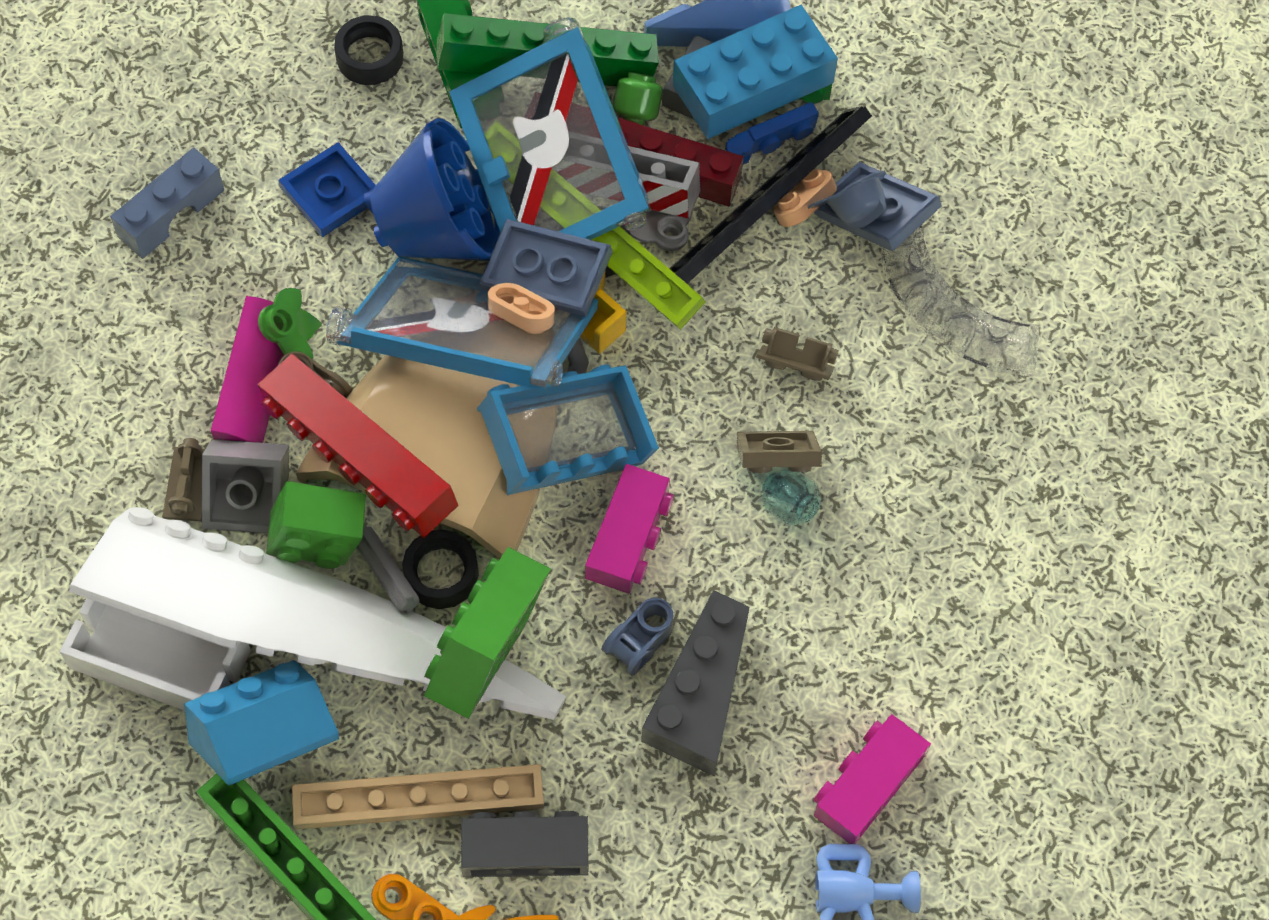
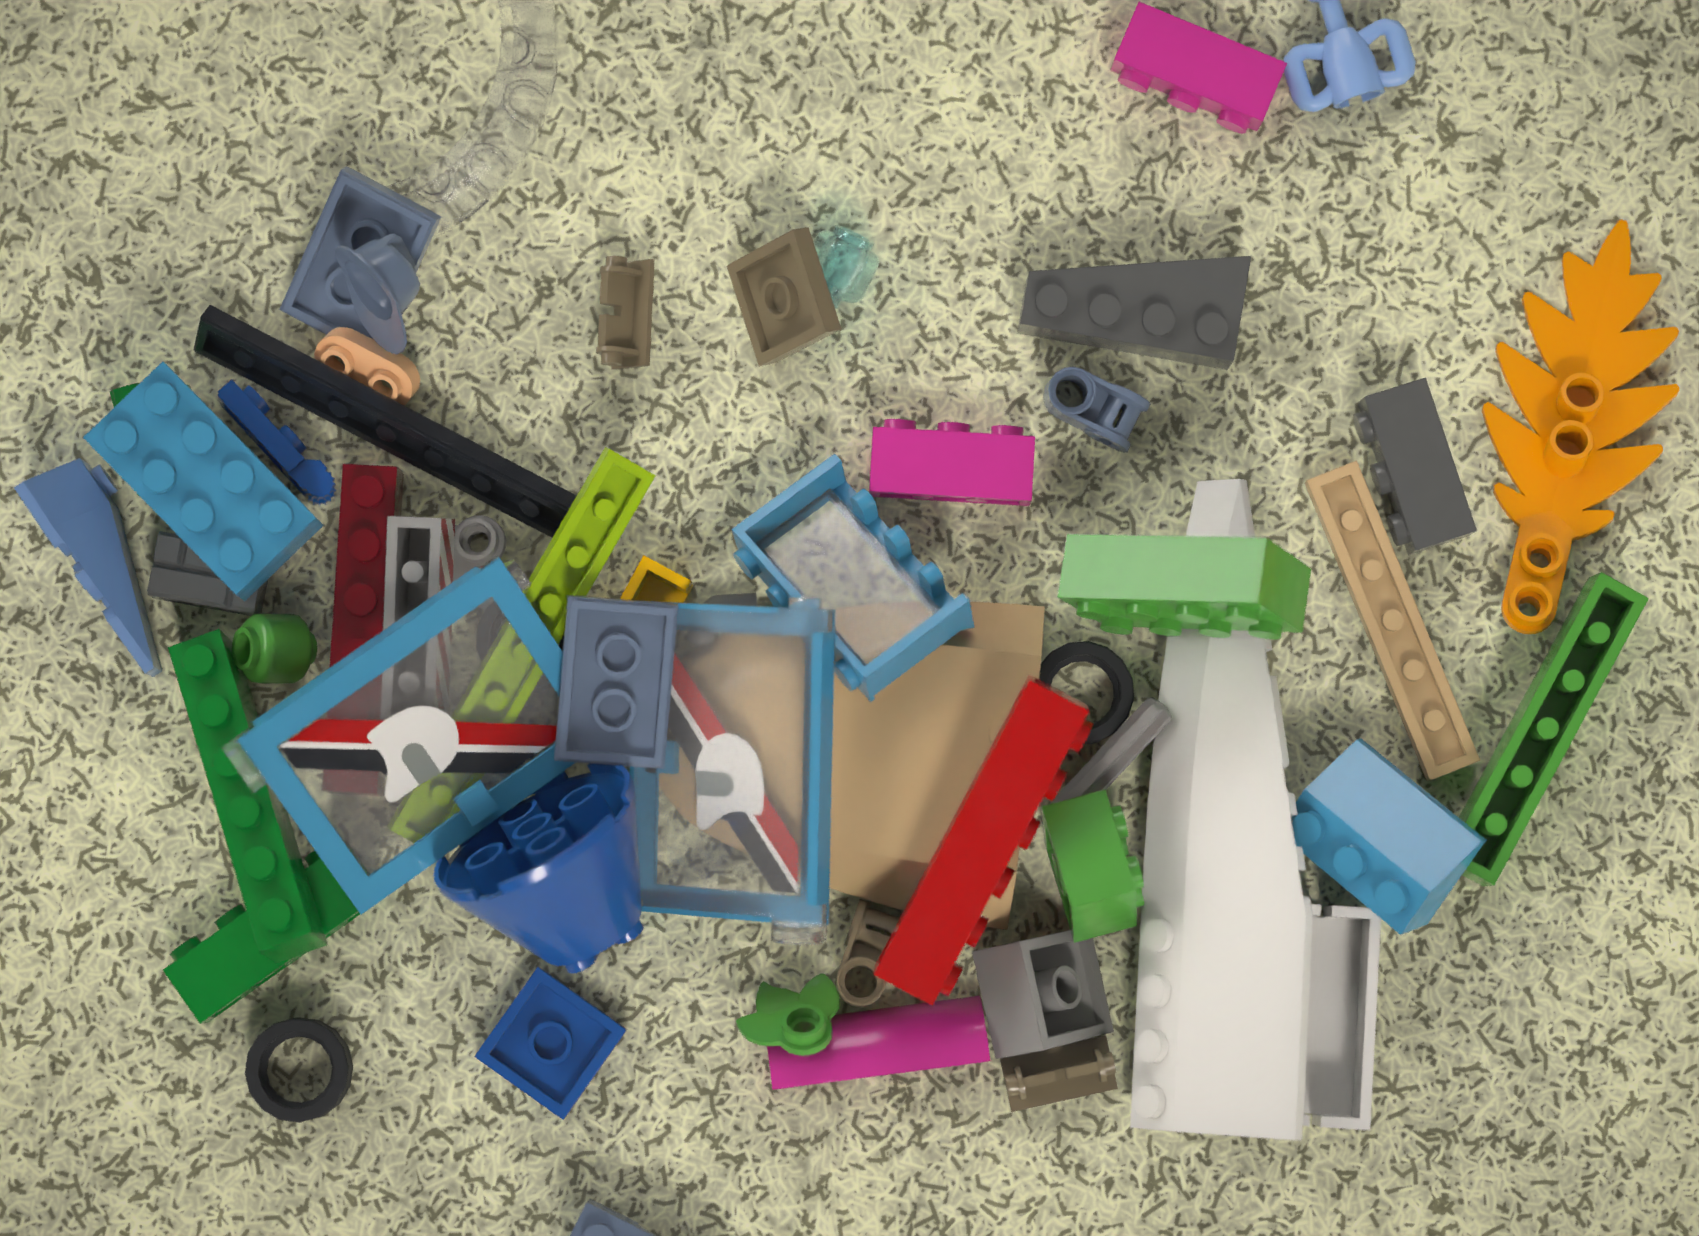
camera: 110 degrees left, 20 degrees up
(521, 307) = (701, 687): light nougat plate -> none

